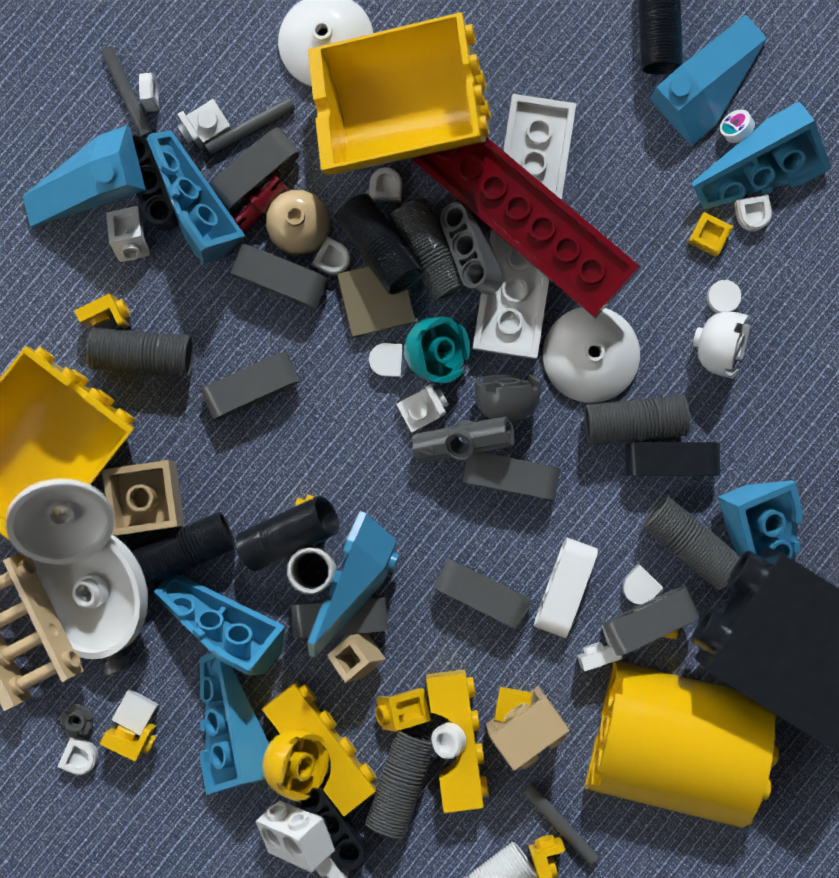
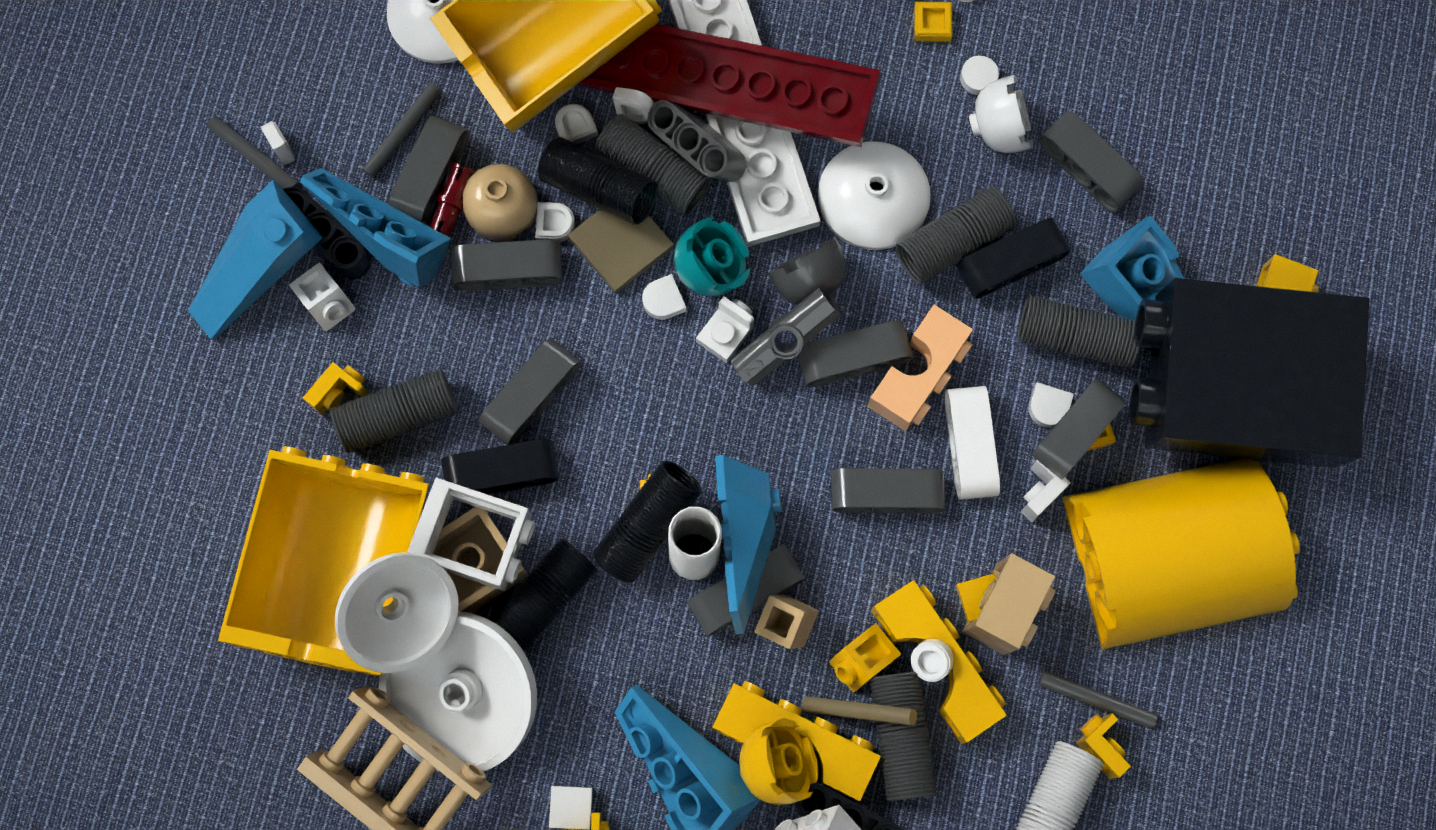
camera: 30 degrees left, 10 degrees down
(115, 663) = (523, 762): dark grey plate -> none
(121, 461) = (435, 514): none -> white window
(199, 435) = (503, 467): none -> black beam
(203, 124) = (351, 149): white bracket -> none
(222, 625) = (634, 655): dark azure wedge -> none
(376, 751) = (859, 710): none -> dark tan bar
(436, 193) = (632, 104): none -> white tile
(582, 500) = (903, 396): none -> light nougat arch
(774, 410) = (1091, 161): none -> dark grey beam

